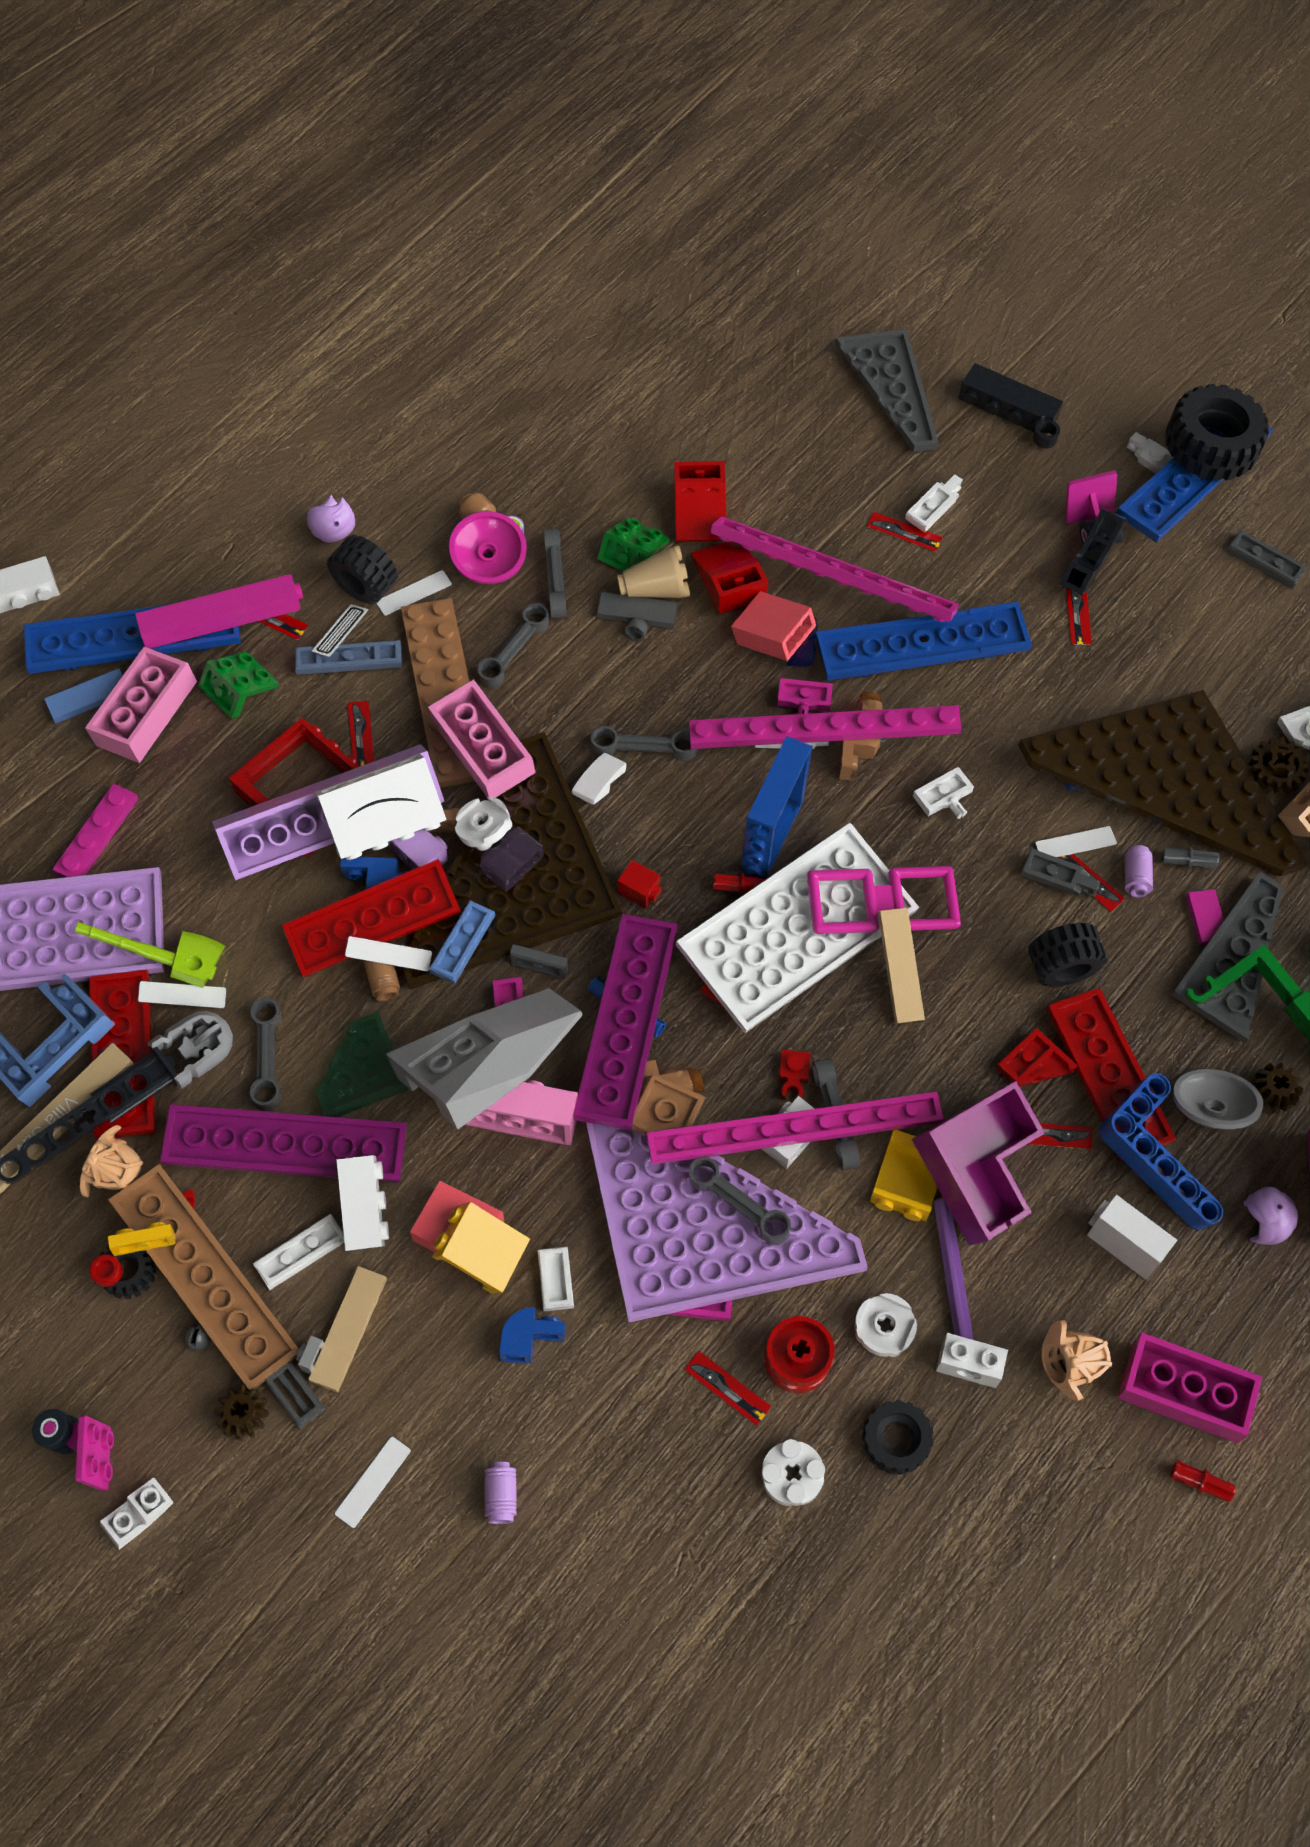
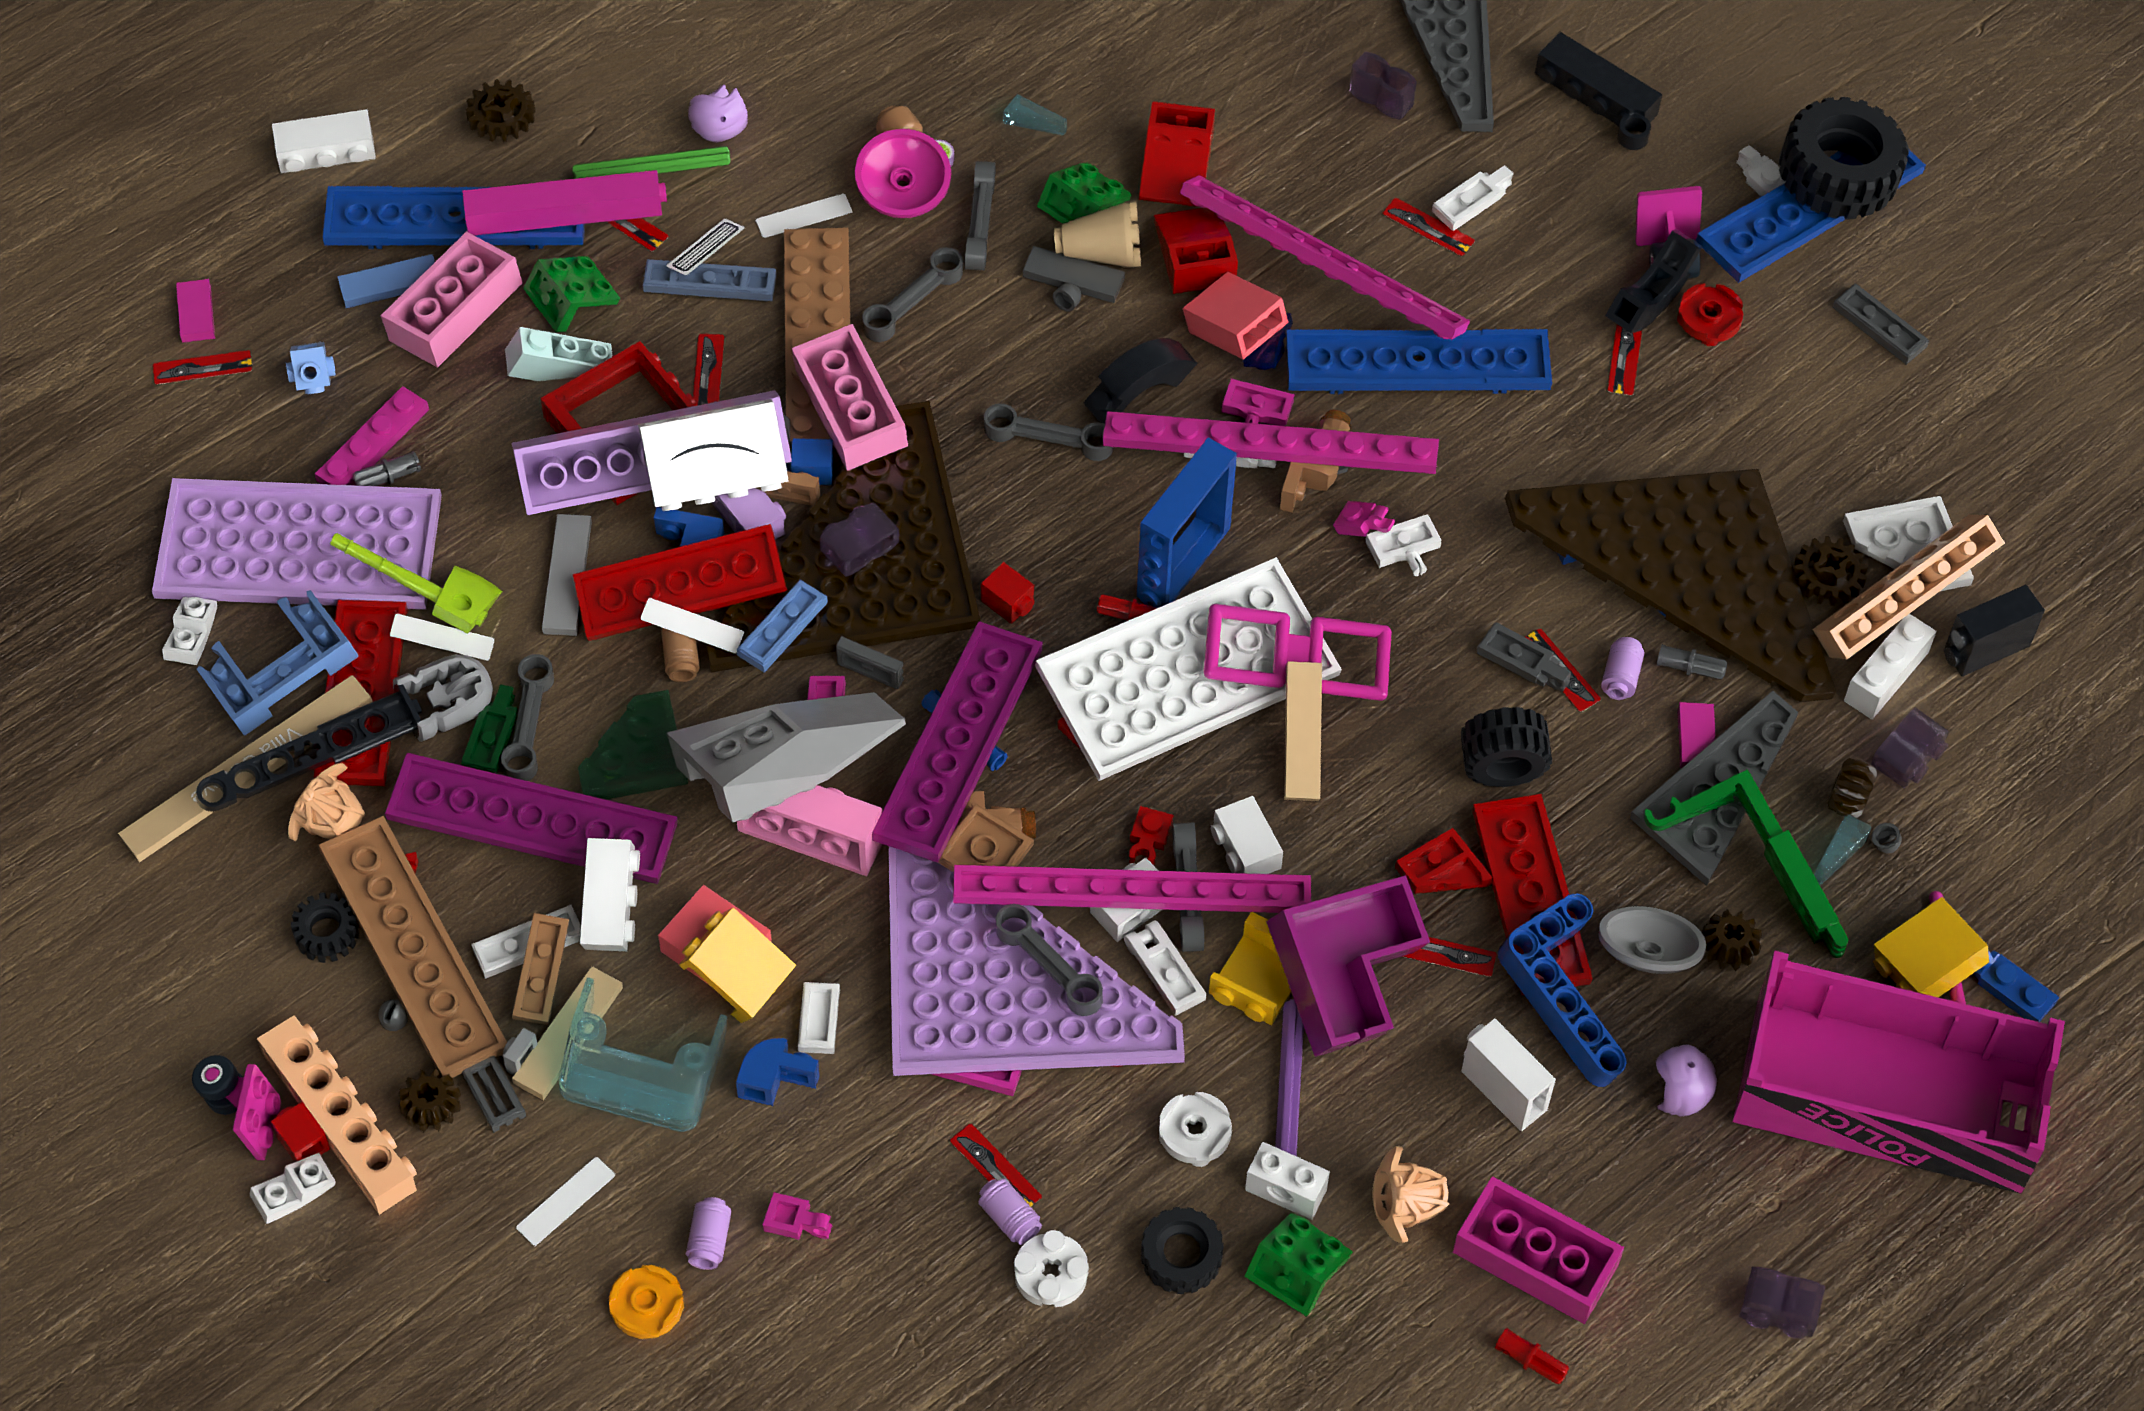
camera: 10 degrees right, 5 degrees down
(34, 770) = (310, 355): none -> light blue brick
(105, 1270) = (302, 921): red tile -> none
(112, 857) = (387, 470): none -> dark grey axle
(132, 1241) = (347, 892): yellow plate -> none
(134, 1463) = (300, 1132): none -> red brick
(154, 541) = (500, 110): none -> dark brown gear
(213, 1500) = (381, 1186): none -> light nougat brick
(233, 739) = (552, 356): none -> light aqua slope
(237, 1073) = (491, 732): none -> dark green hinge
(275, 913) = (567, 558): none -> light grey tile
(278, 569) = (661, 162): none -> bright green axle
(315, 1277) = (540, 969): none -> medium nougat plate
(362, 569) = (744, 177): black tyre -> none
(412, 1370) = (635, 1083): none -> clear light blue windscreen
(458, 792) = (814, 458): none -> blue brick
(458, 1564) = (646, 1302): none -> light orange tile
(491, 831) = (847, 492): white plate -> none
(565, 1465) = (791, 1215): none -> dark pink plate
(578, 486) = (1030, 115): none -> clear light blue piece
(597, 778) = (981, 465): white slope -> none
(705, 684) = (1137, 370): none -> black arch
(748, 1427) = (1009, 1211): none -> lavender head
(801, 1336) = (1084, 1141): red wheel -> none
(832, 1187) = (1165, 968): none -> white plate
(848, 424) = (1383, 85): none -> clear purple brick
(874, 1065) = (1246, 838): none -> white brick
(905, 778) = (1360, 517): none -> dark pink plate
(995, 1431) = (1297, 1262): none -> green bracket
(1077, 842) = (1558, 625): white sticker -> none
(1133, 581) = (1707, 328): none -> red plate

